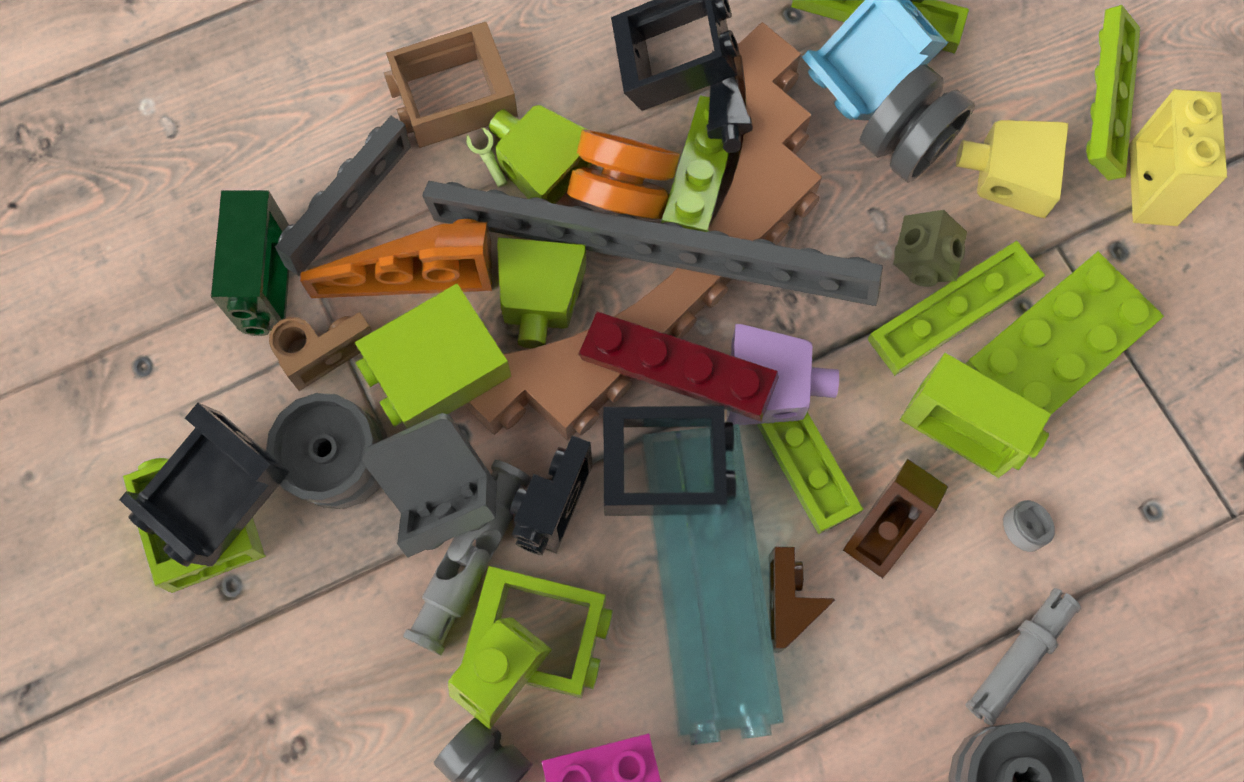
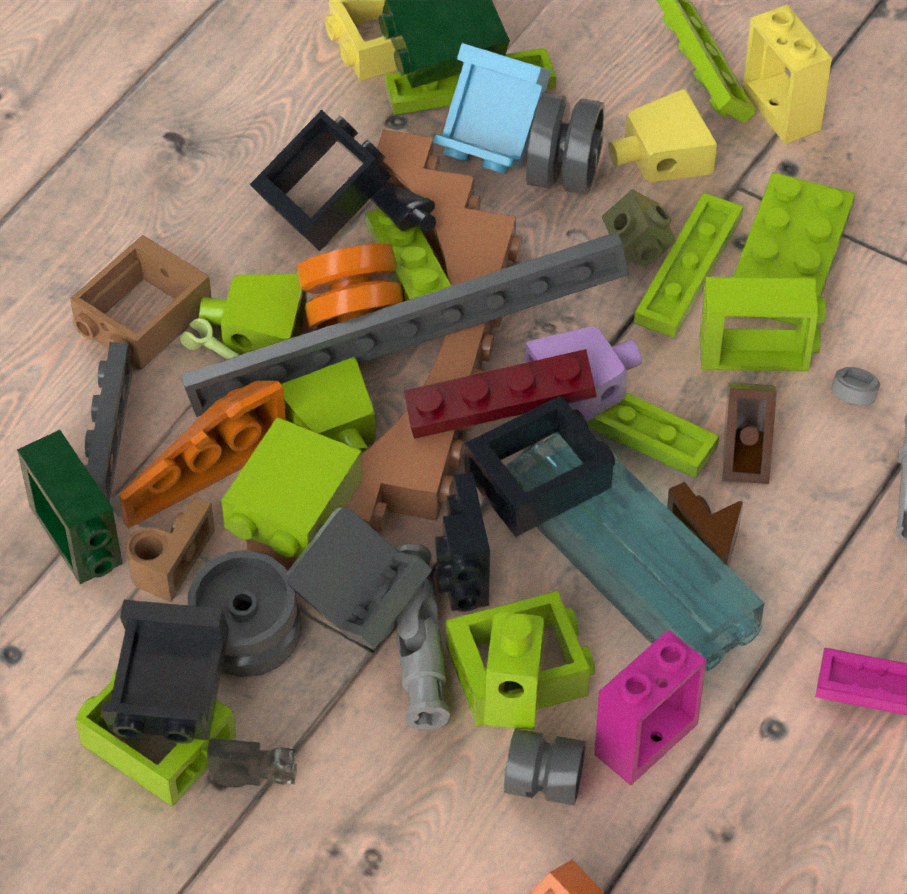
camera: 30 degrees left, 20 degrees down
(235, 594) = (244, 763): none -> clear smoke plate

